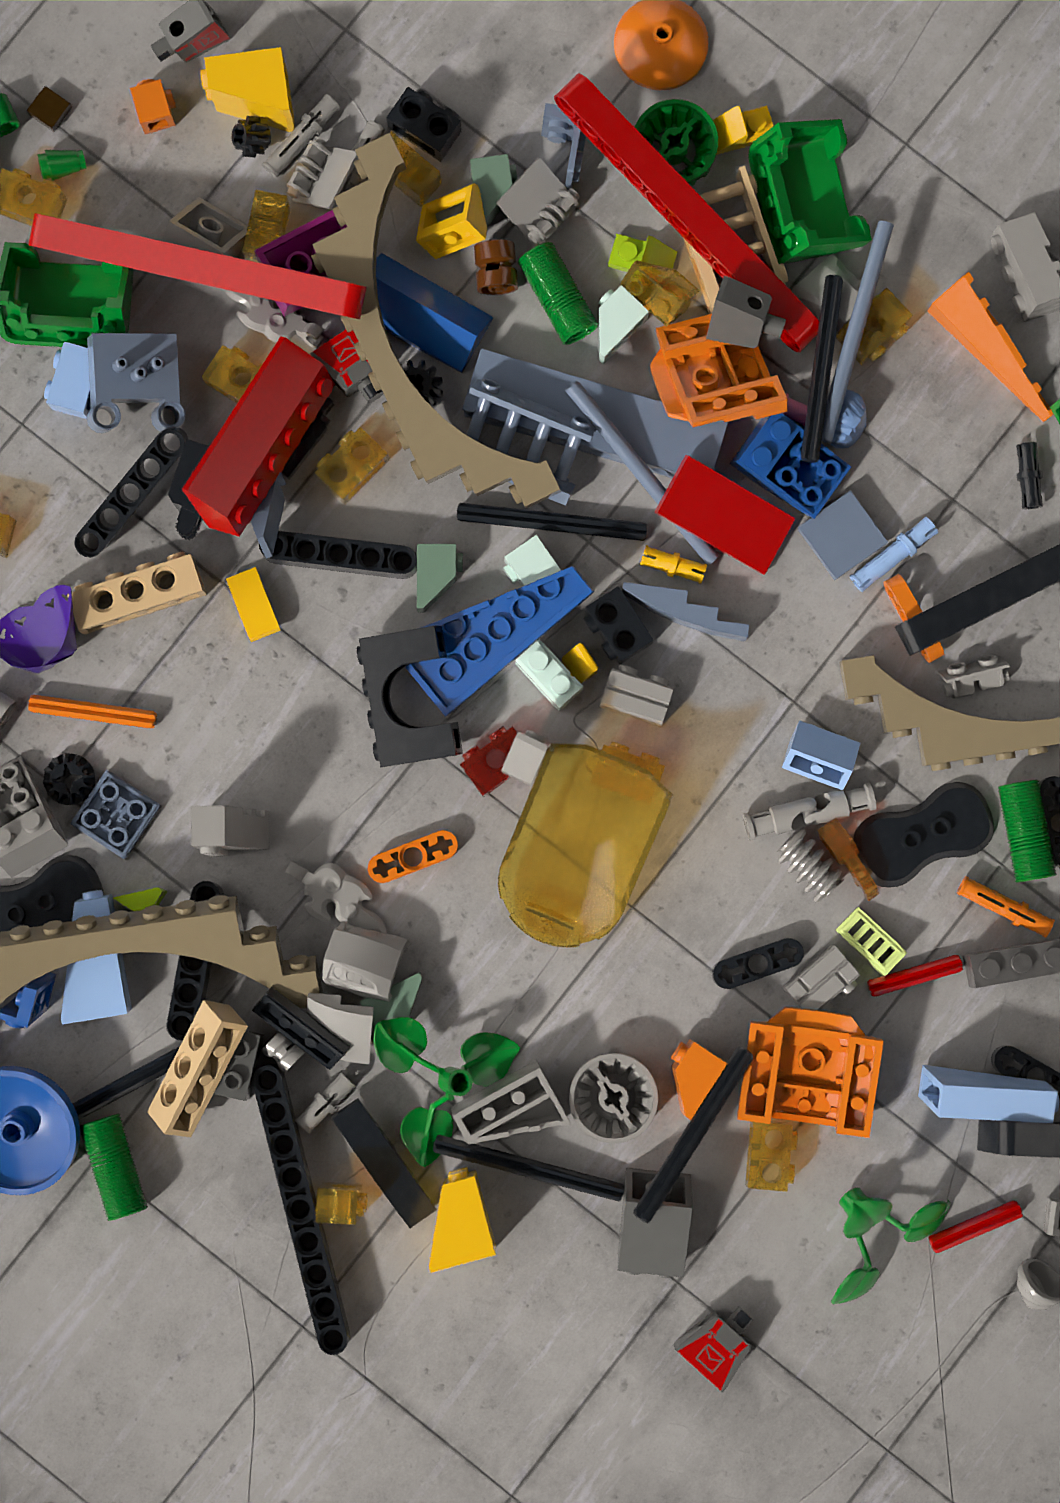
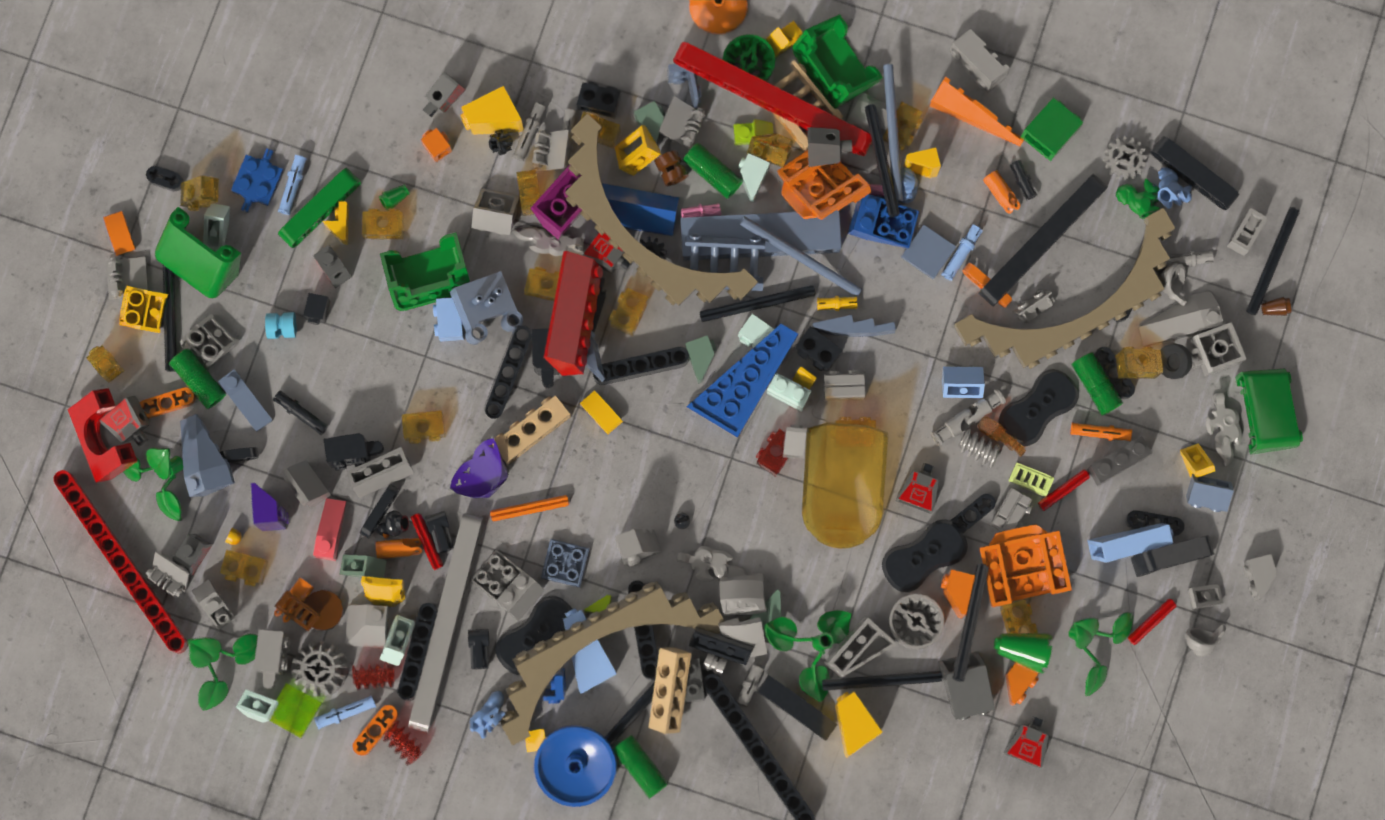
camera: 20 degrees left, 5 degrees down
(49, 108) = (374, 167): dark brown tile -> none
(80, 788) = (527, 561): black gear -> none
(198, 266) = (501, 227): beam -> none
(316, 821) = (683, 525): none -> black hinge
(340, 1203) = (781, 738): clear yellow brick -> none
(382, 660) = (690, 415): black arch -> none
(393, 872) = (762, 519): orange beam -> none
(519, 350) = (701, 211): none -> bright pink axle
(690, 994) = (912, 563): none -> black plate
(694, 896) = (920, 490): none -> torso
(724, 515) = (856, 264): red tile -> none
(737, 1243) = (1018, 680): none -> orange slope
(764, 1206) = (1025, 649): none -> green cone
(885, 394) = (923, 162): none -> yellow tile
(989, 482) = (1001, 191): none -> orange piece

